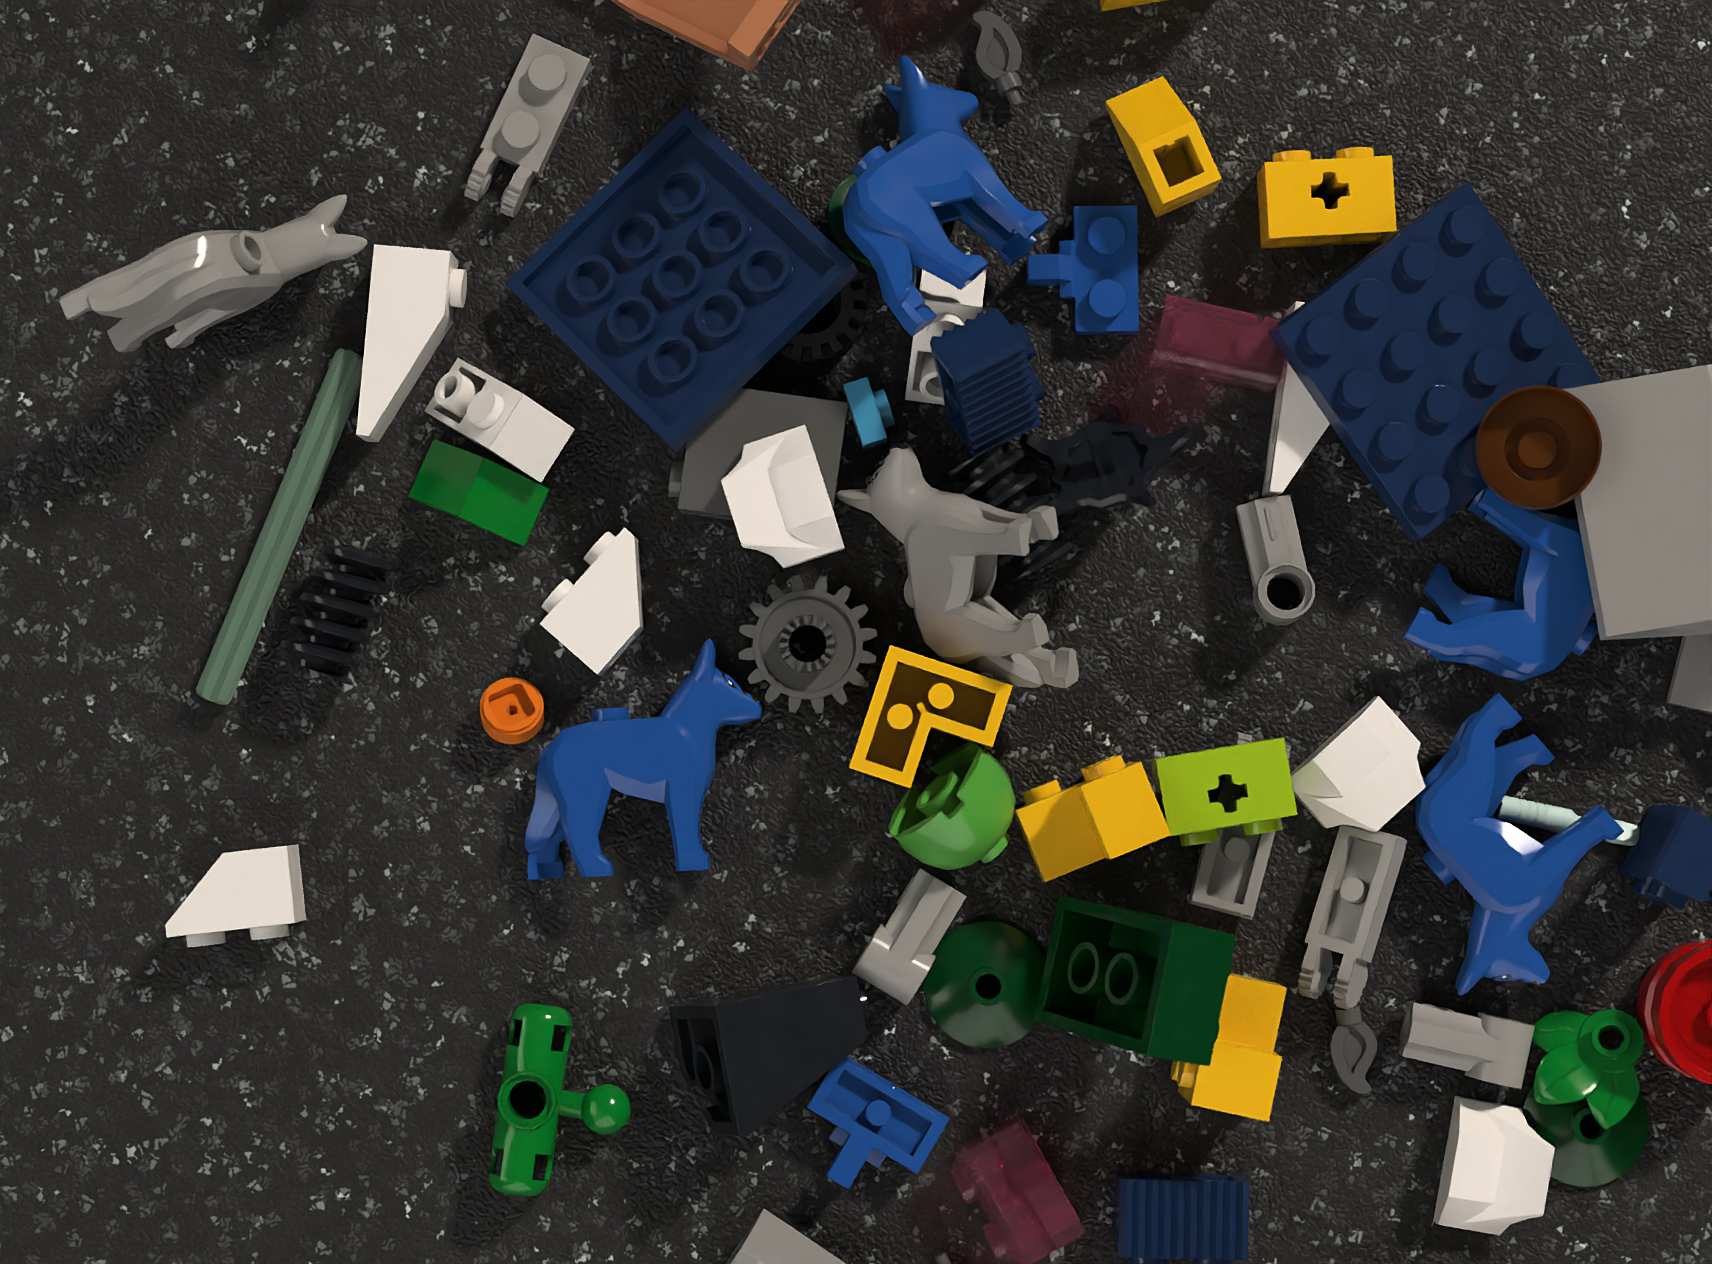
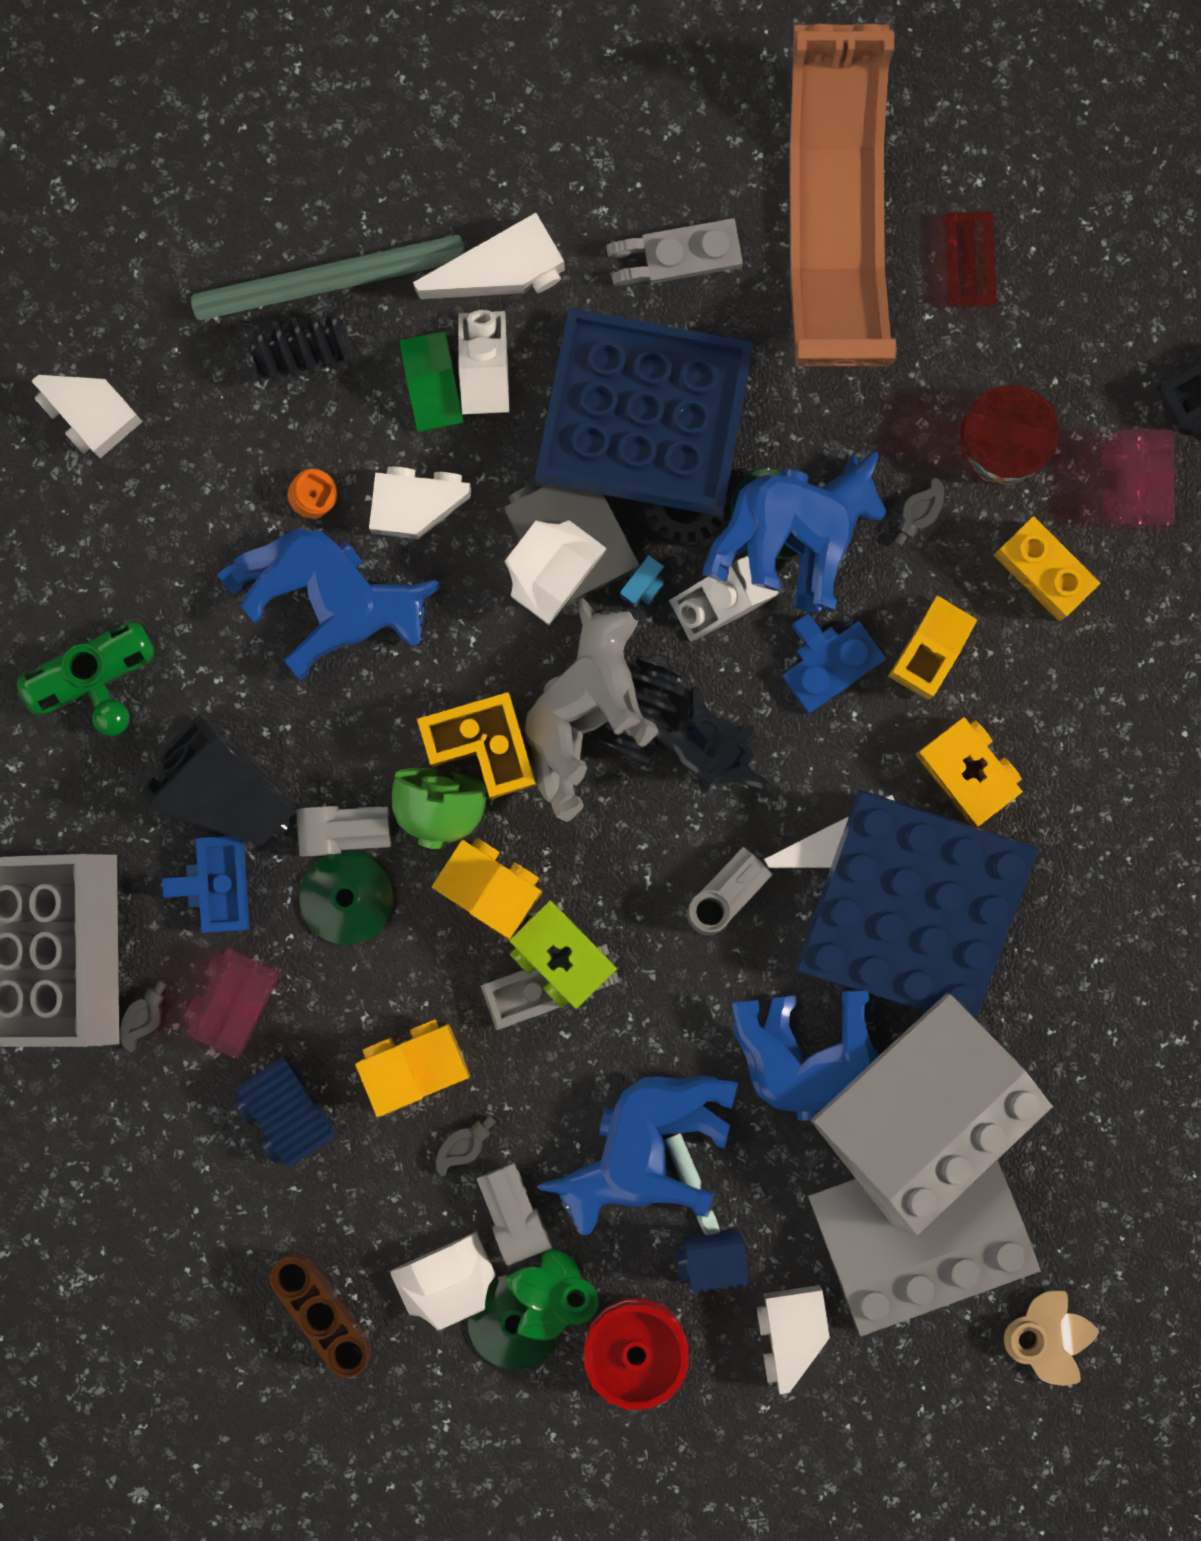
camera: 55 degrees right, 0 degrees up
(210, 277) = (446, 129): light grey animal -> none
(801, 610) = (471, 619): dark grey gear -> none
(987, 380) = (710, 640): dark blue brick -> none
(1135, 980) = (407, 979): dark green brick -> none
(1216, 344) = (832, 764): clear pink brick -> none
(1350, 912) = (542, 1087): light grey hinge -> none
(1361, 771) = (634, 1035): white slope -> none
(1538, 447) = (902, 1002): reddish brown piece -> none

